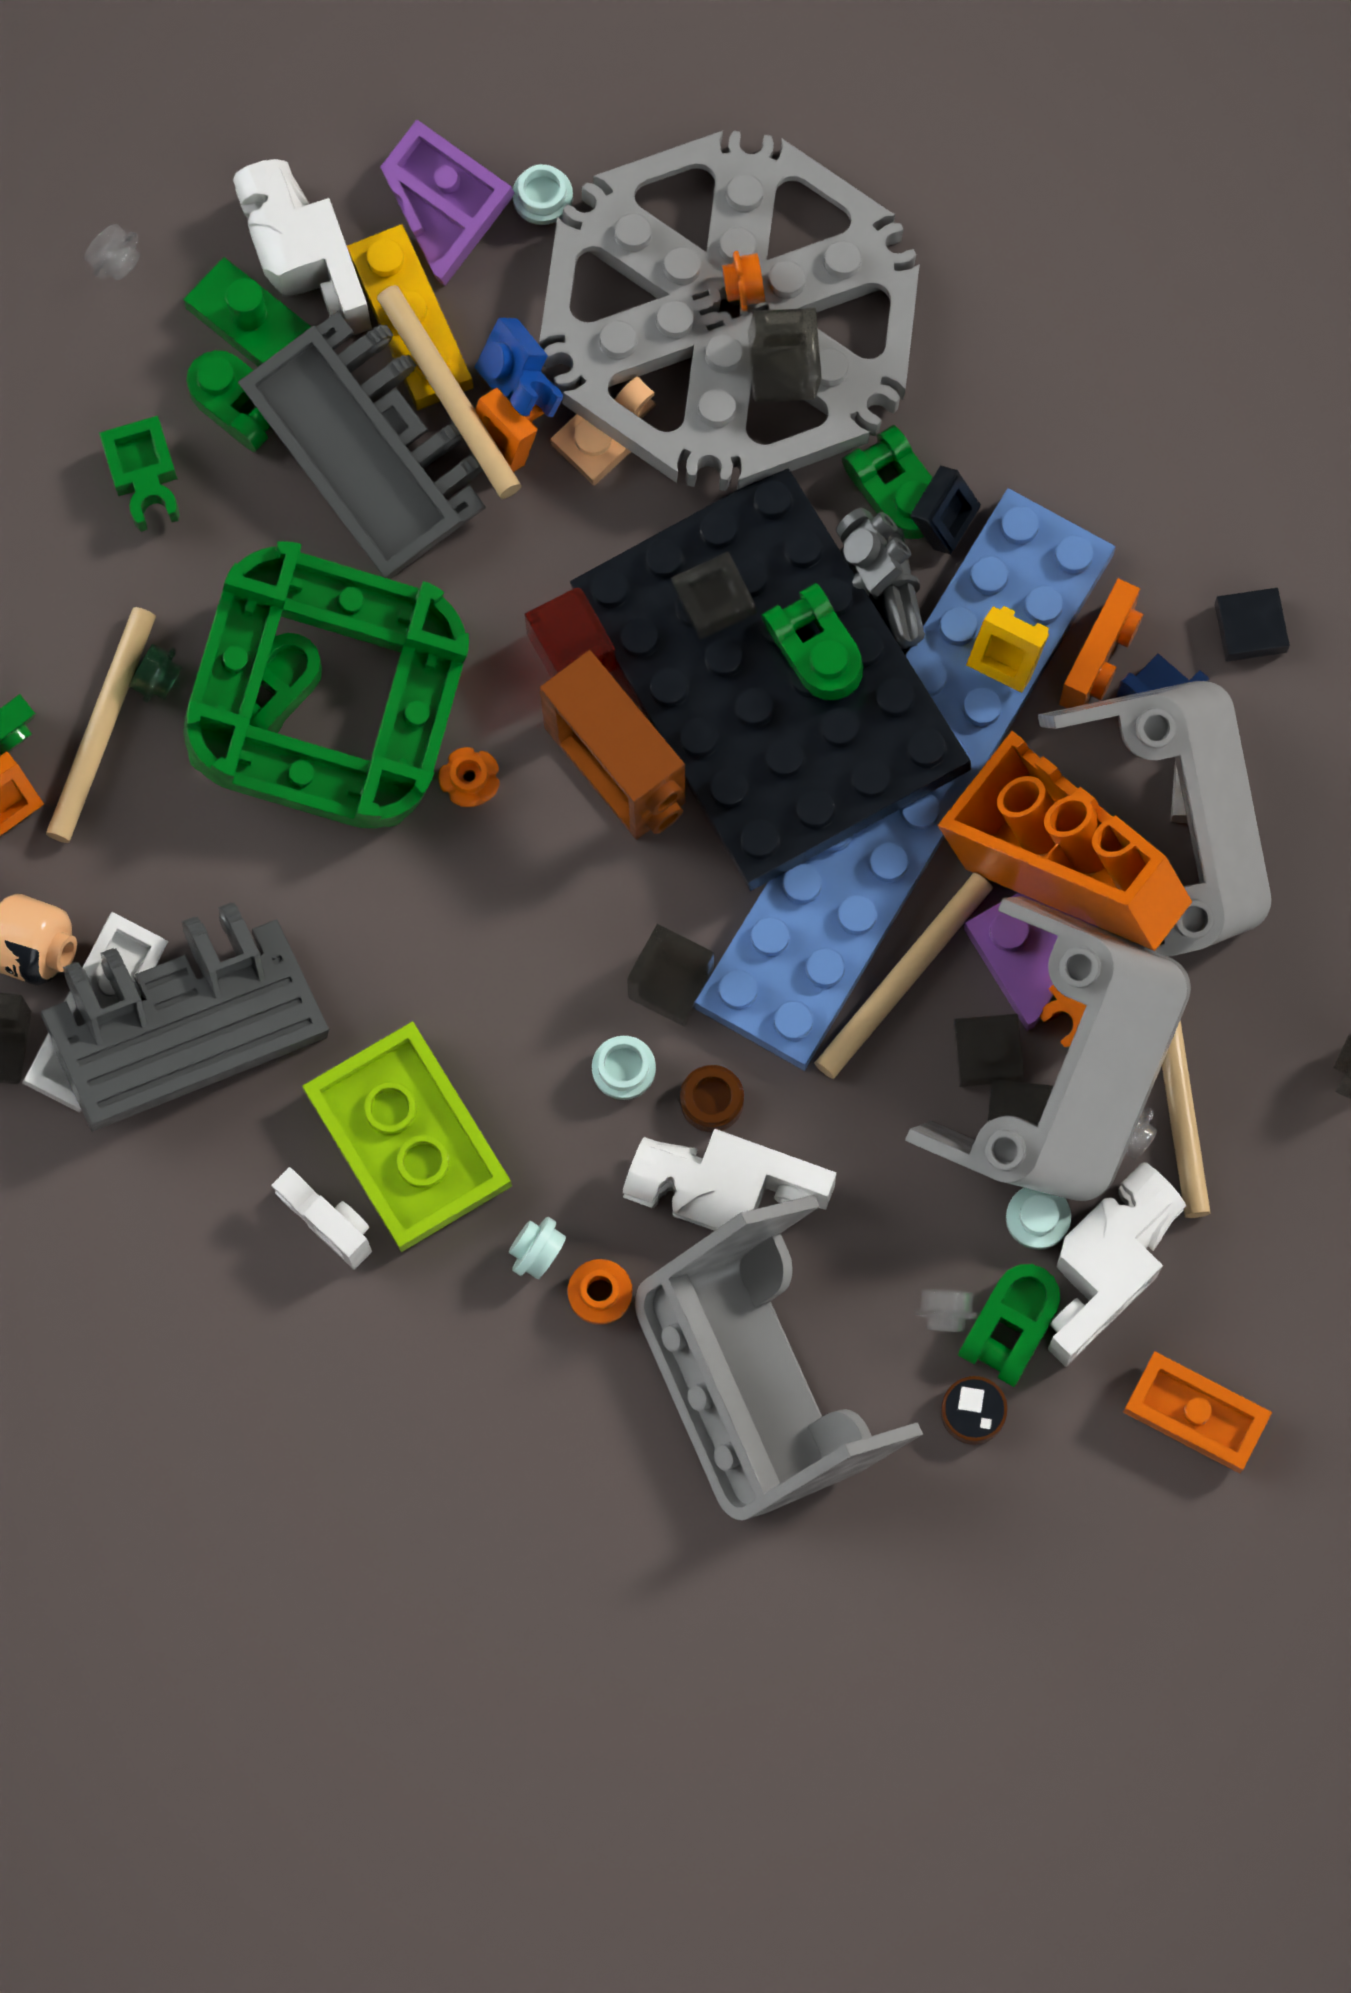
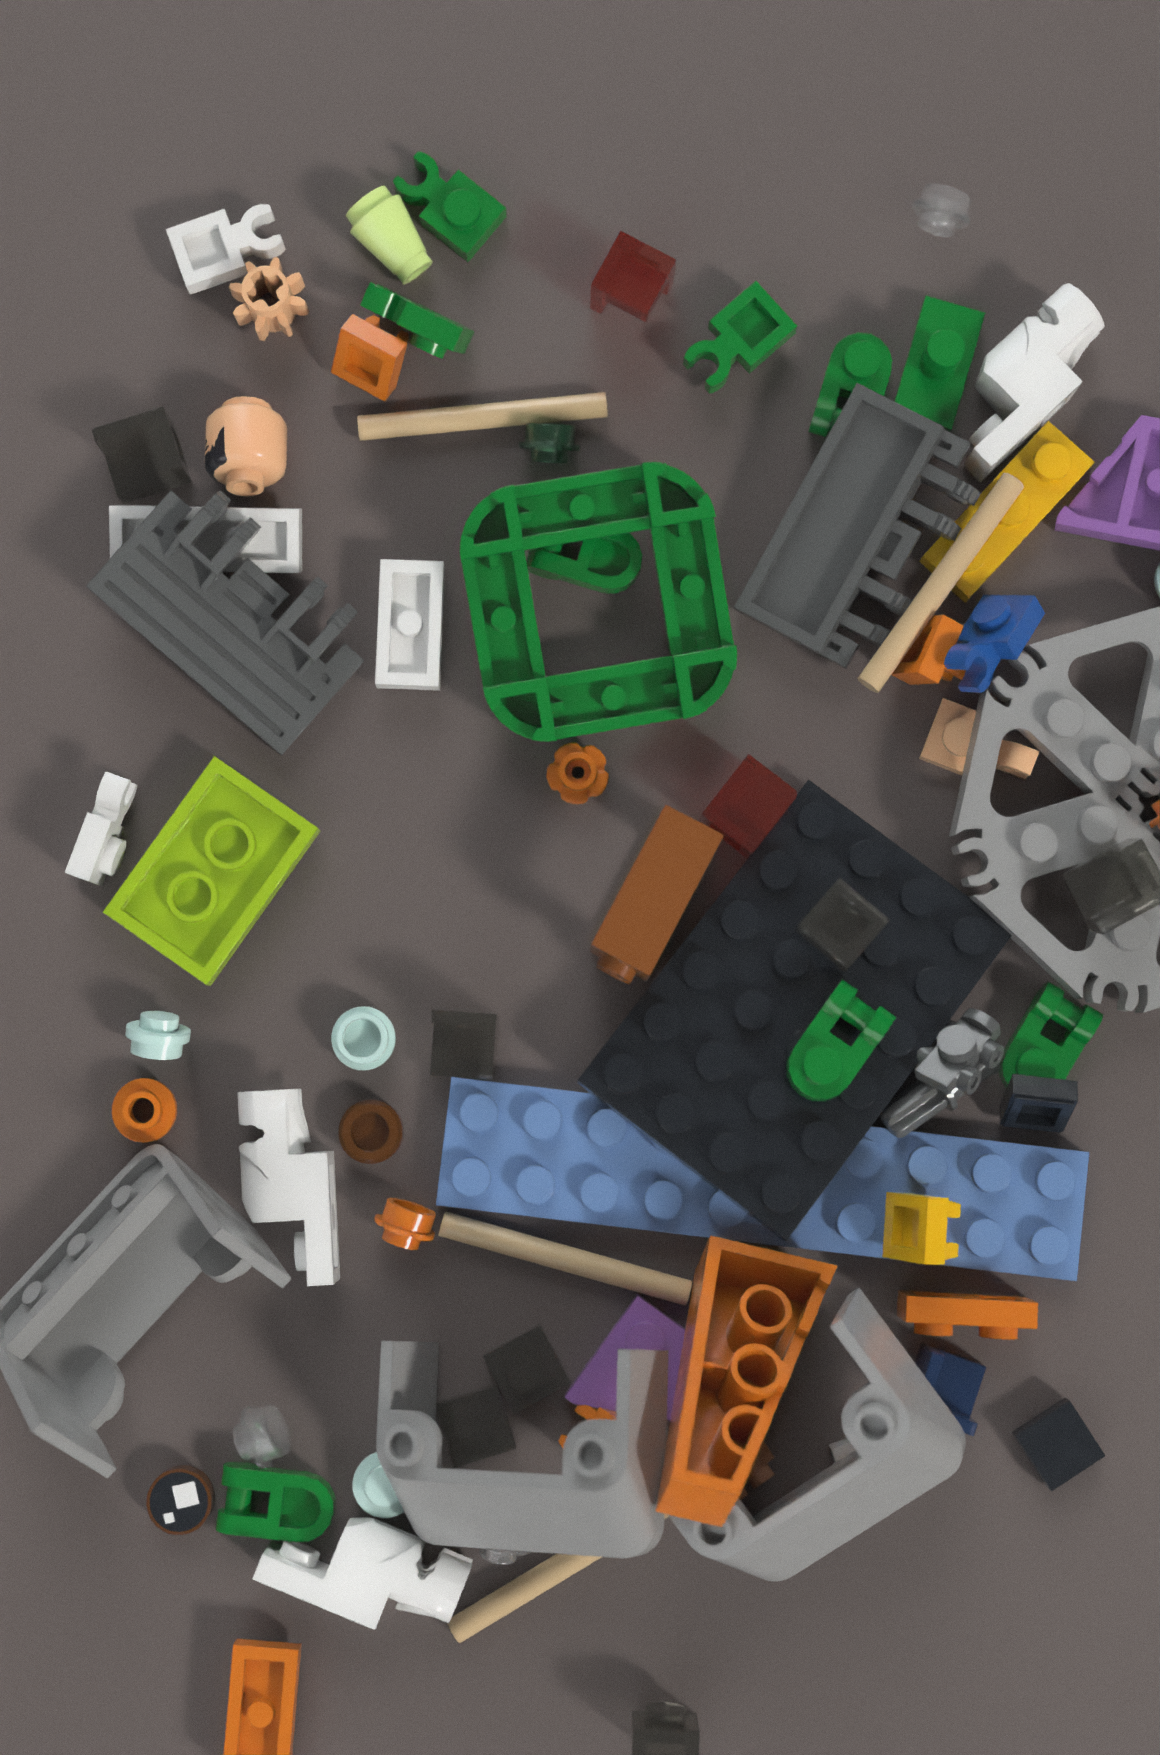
camera: 65 degrees right, 10 degrees up
(45, 533) = (632, 277): none -> clear red panel
(263, 865) = (410, 624): none -> white plate
(810, 1098) = (406, 1223): none -> orange plate

